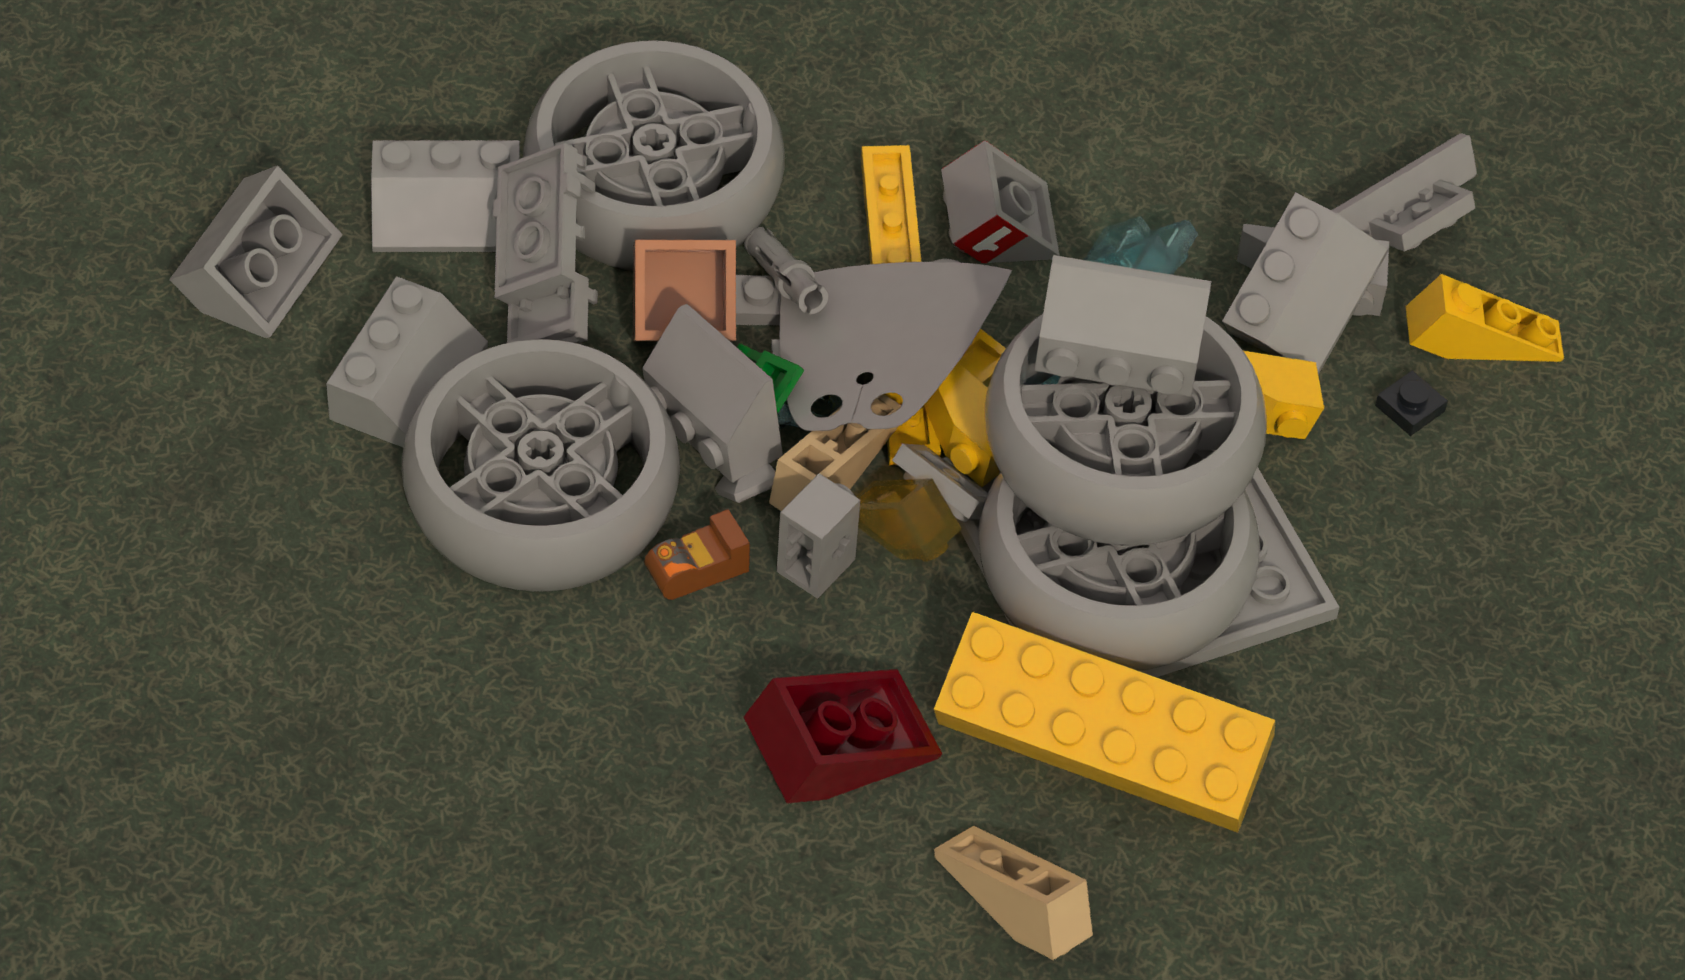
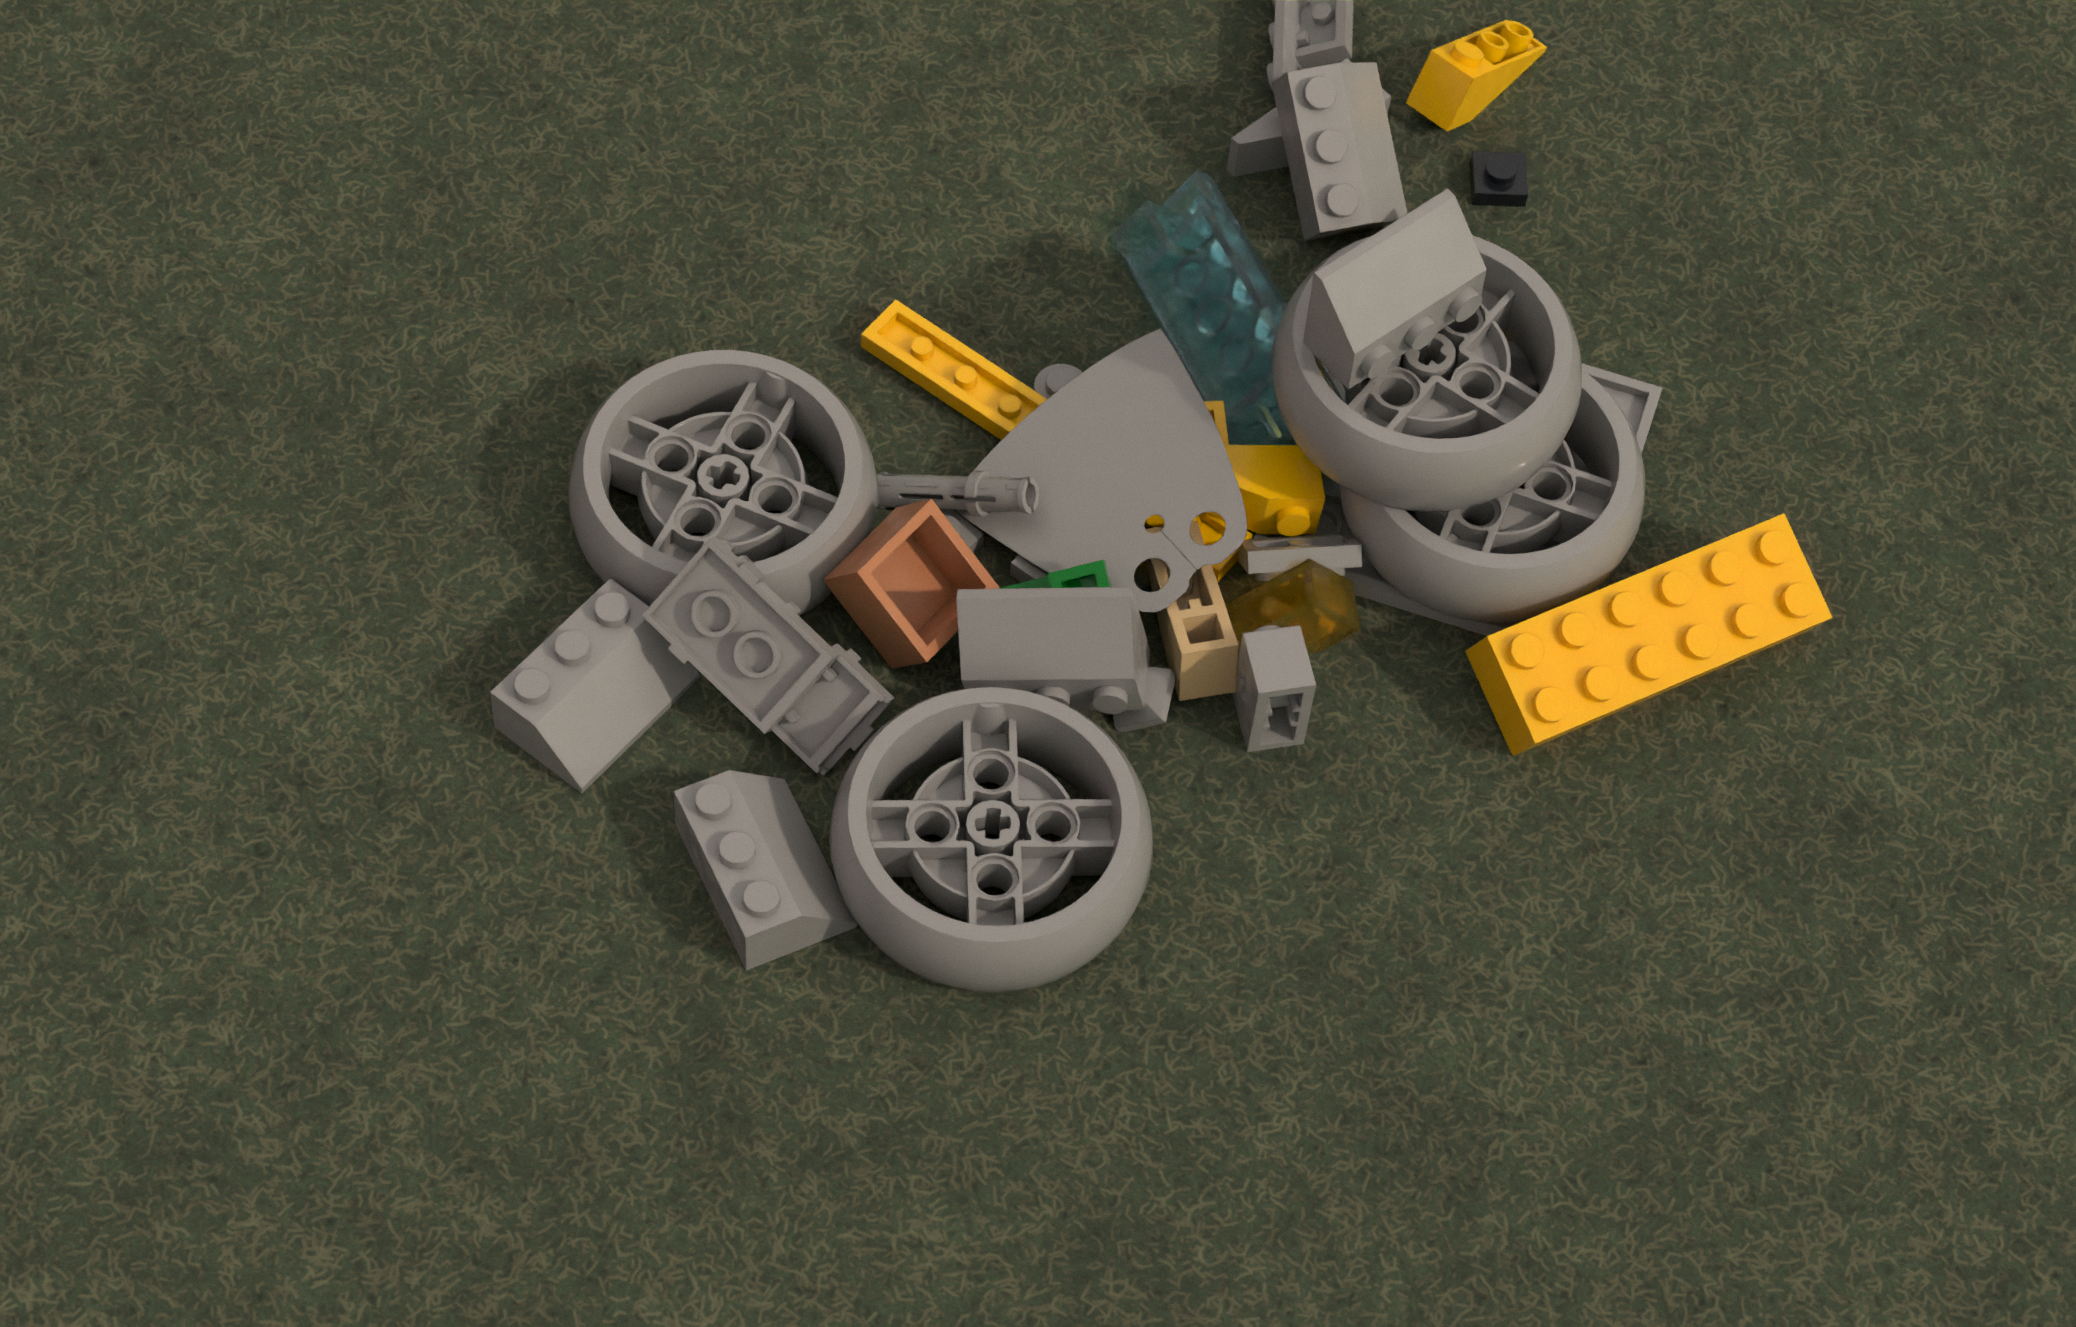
camera: 50 degrees left, 5 degrees up
(257, 254) = (504, 886): light grey slope -> none
(700, 557) = (1193, 793): dark orange leg -> none
(838, 732) = (1476, 834): dark red slope -> none
(998, 208) = (1025, 294): light grey slope -> none
(1022, 892) = (1748, 825): tan slope -> none

